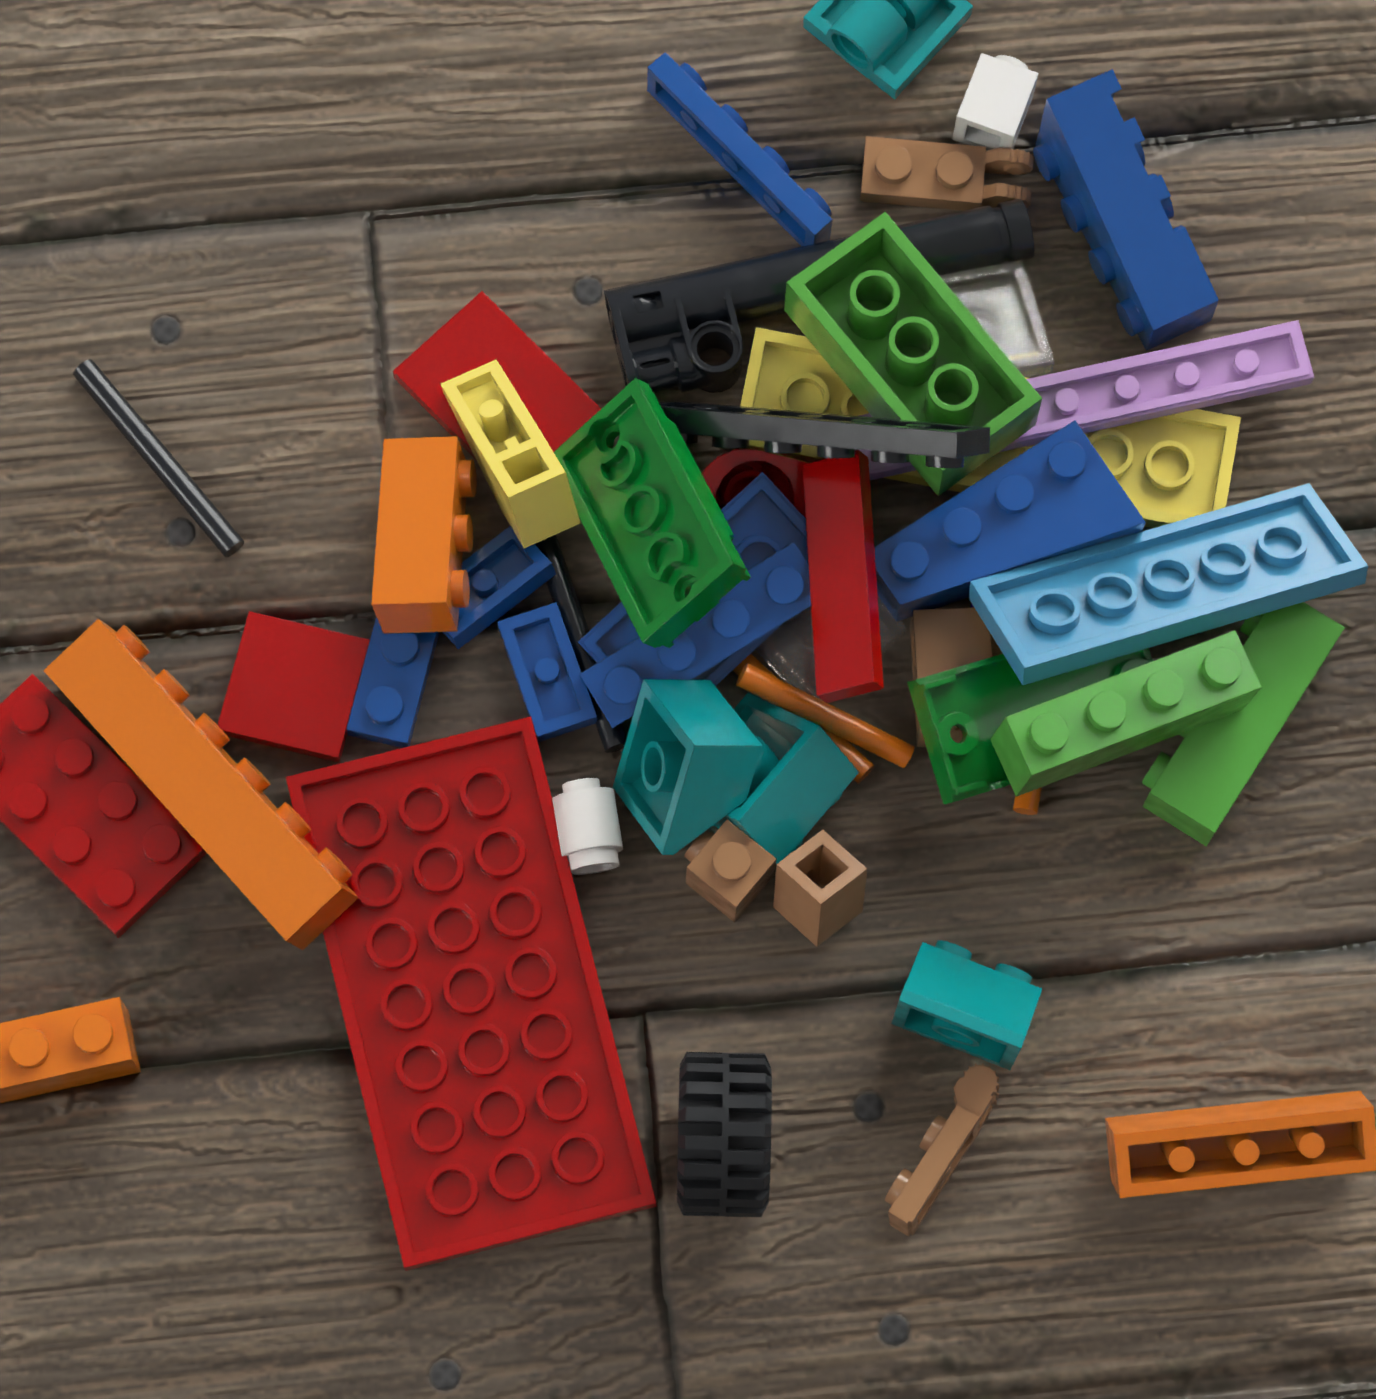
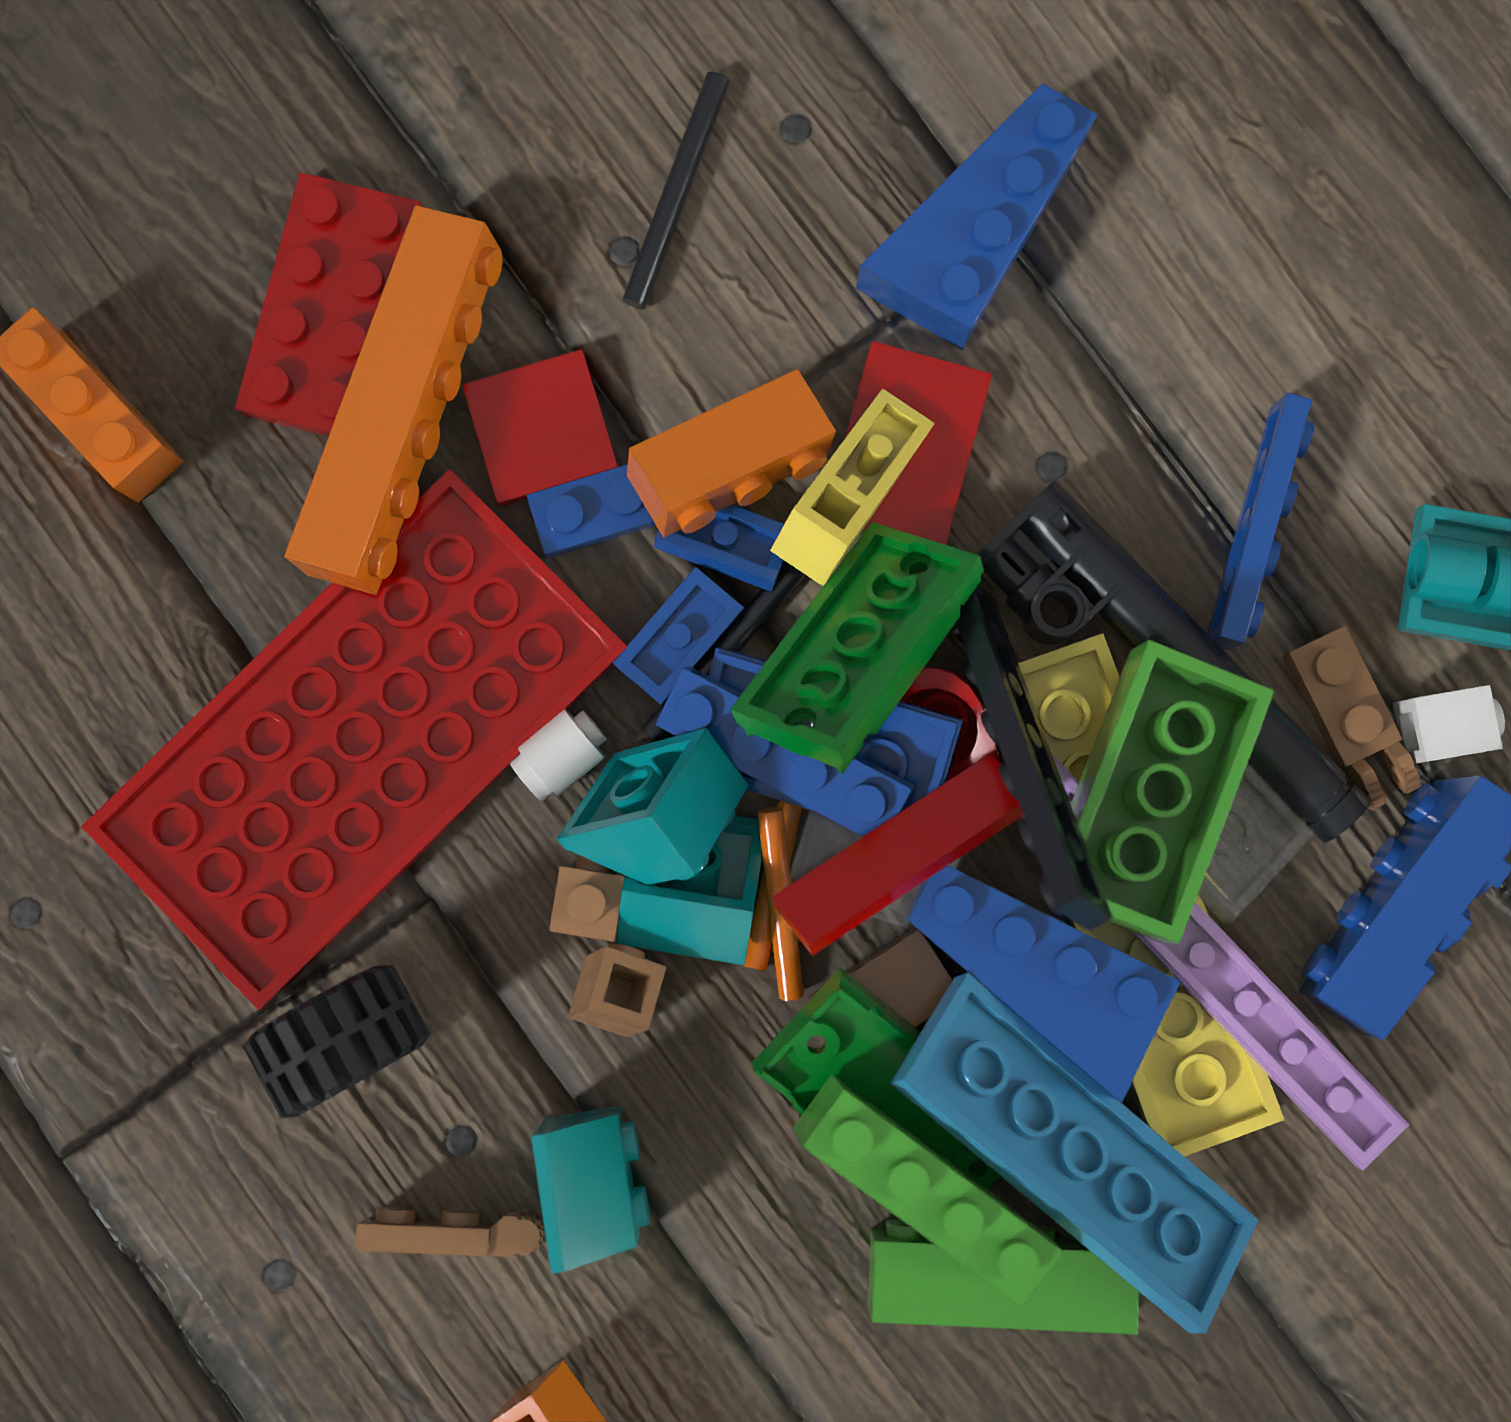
camera: 60 degrees right, 10 degrees up
(357, 240) = (970, 230): none -> blue wedge

